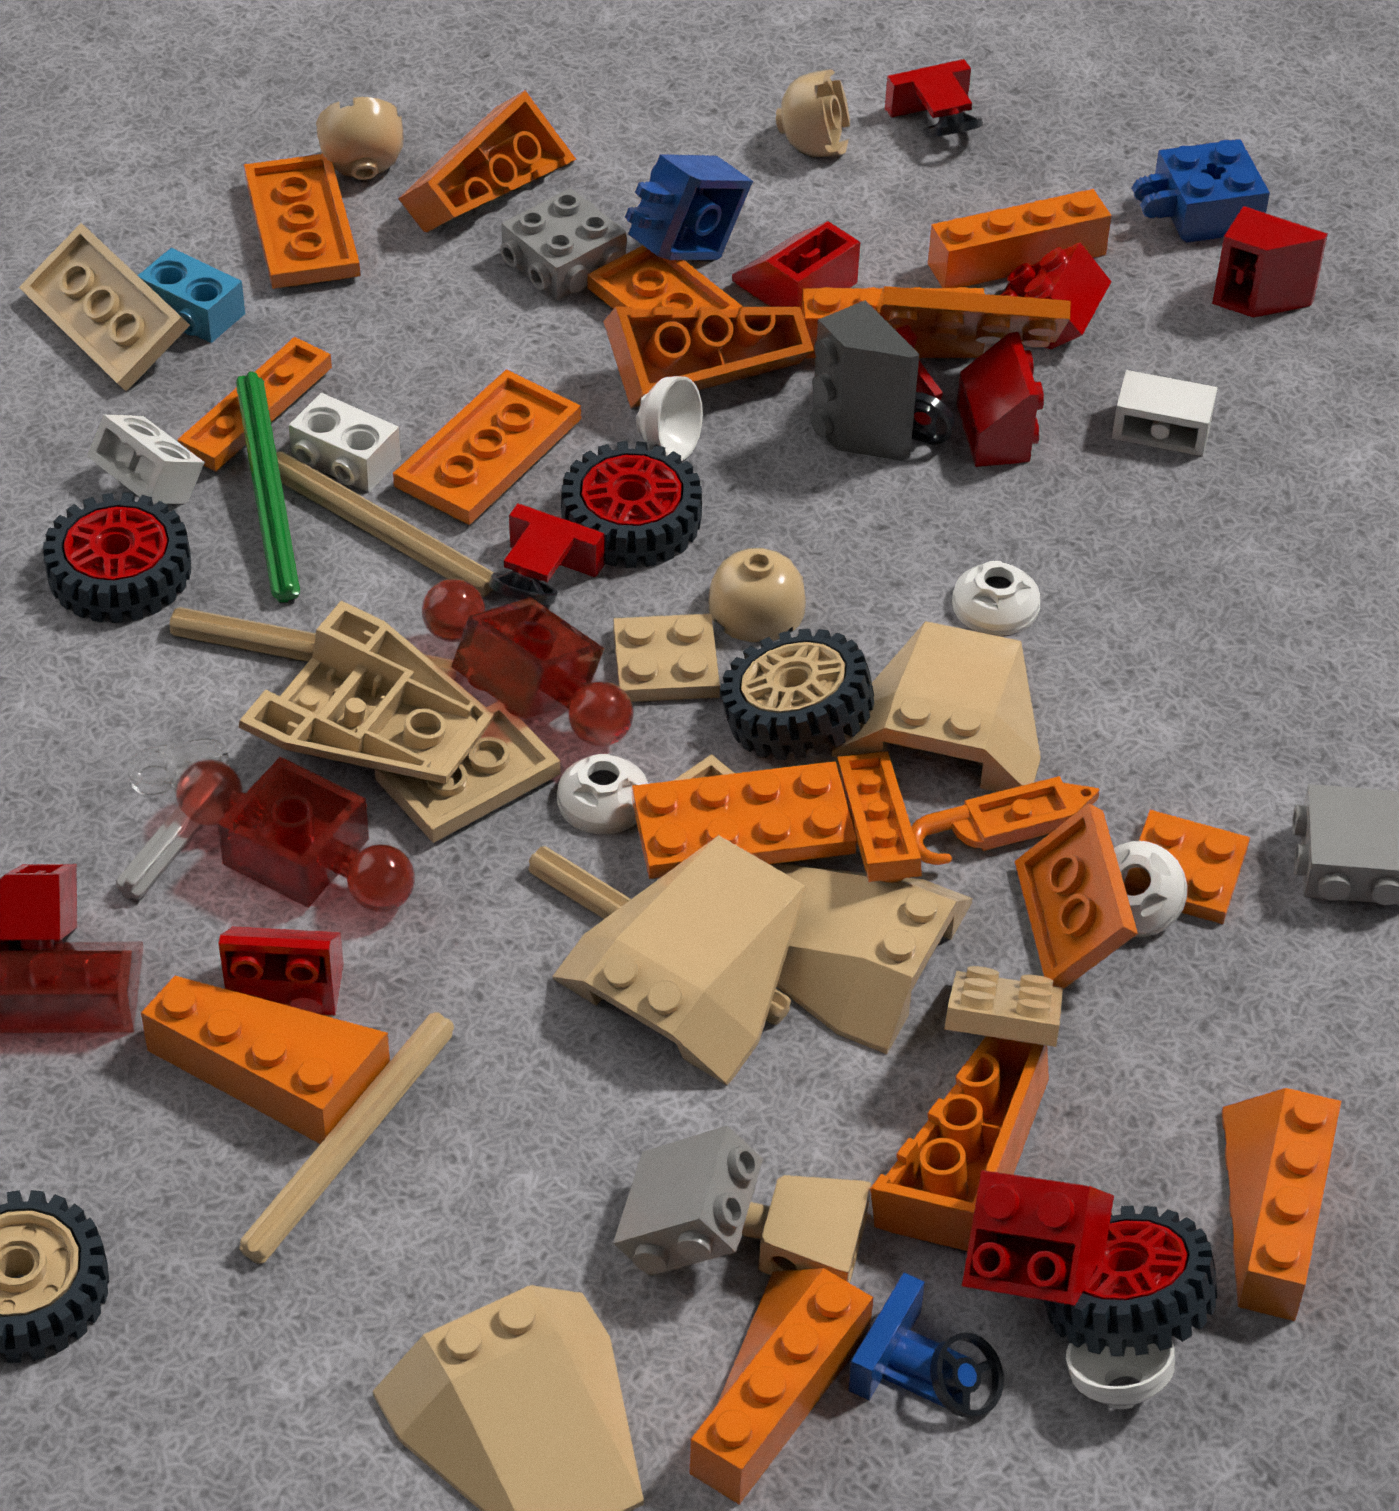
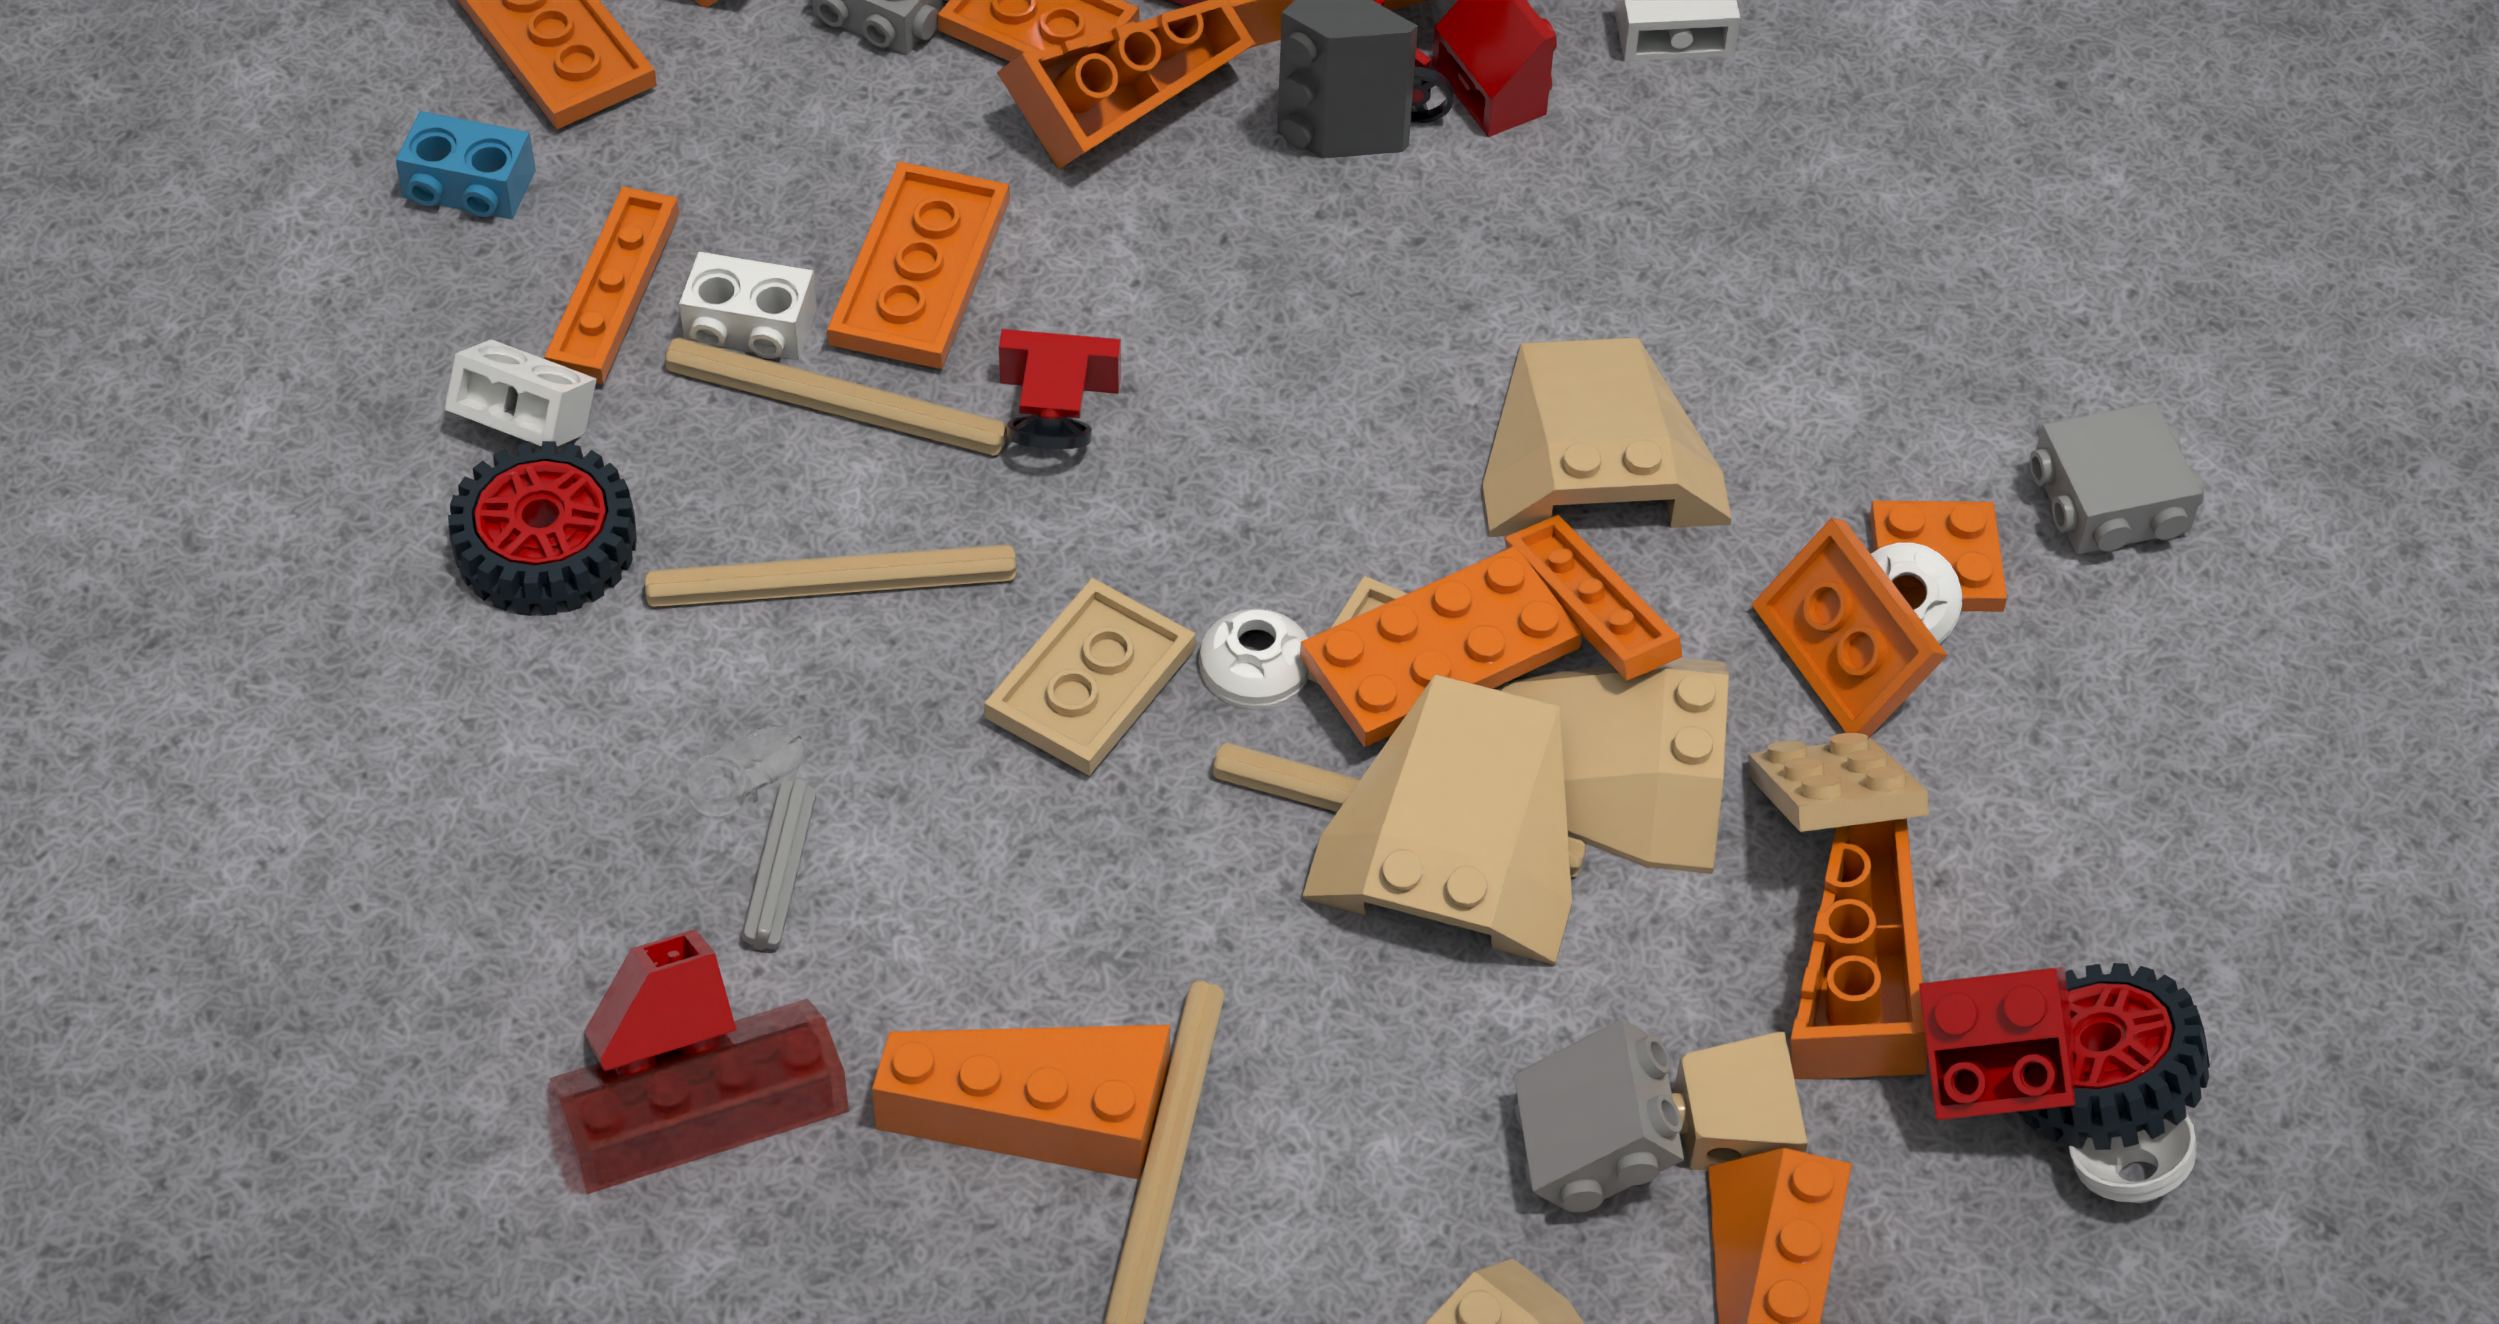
camera: 20 degrees left, 5 degrees up
(104, 307) = (368, 209): tan plate -> none
(267, 488) = (685, 389): green axle -> none
(284, 966) = (1003, 979): red slope -> none
(295, 833) = (933, 813): clear red brick -> none
(371, 703) = (951, 627): tan wedge -> none
(528, 660) = (1107, 522): clear red brick -> none
(637, 499) = (1127, 285): wheel -> none
(666, 657) = (1249, 471): tan plate -> none
(671, 416) = (1124, 173): white piece -> none
(757, 595) = (1321, 365): tan cylinder -> none
(797, 694) = (1431, 475): black wheel -> none
(918, 1362) = (1919, 1219): blue piece -> none
(994, 609) = (1585, 308): white piece -> none
(1005, 816) = (1727, 550): orange plate -> none
(1277, 1181) = (2207, 905): orange wedge -> none

